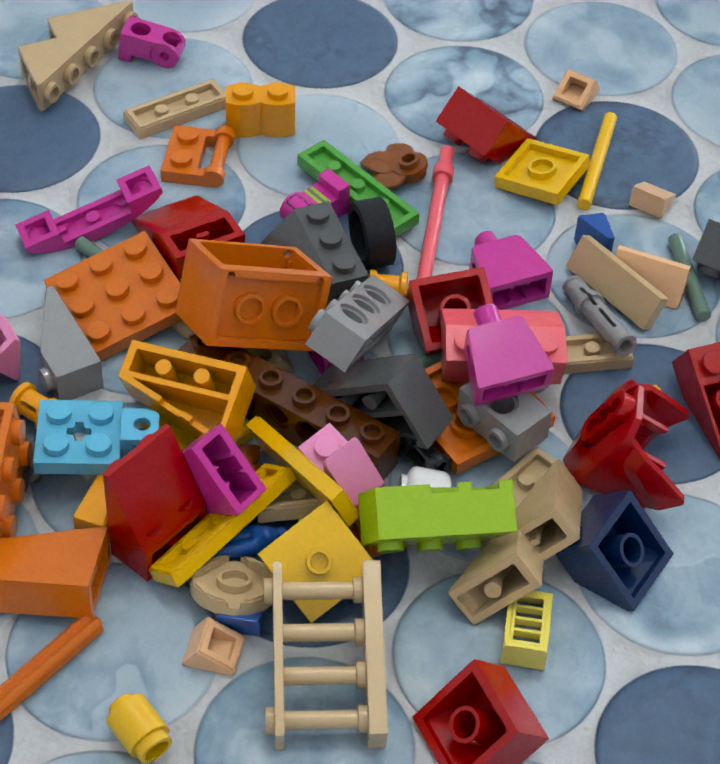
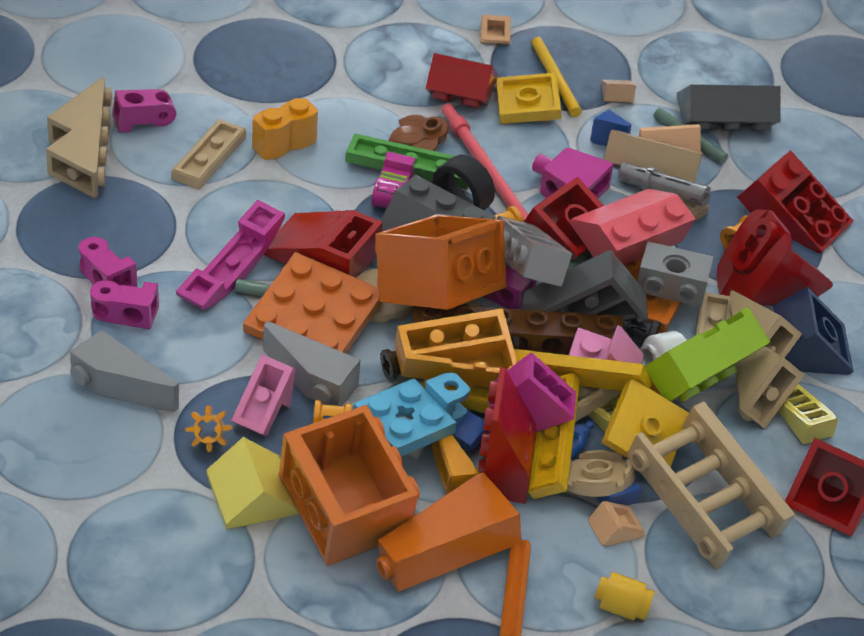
camera: 35 degrees left, 5 degrees down
(187, 151) = (250, 183): orange plate -> none
(503, 357) = (663, 228): dark pink torso -> none

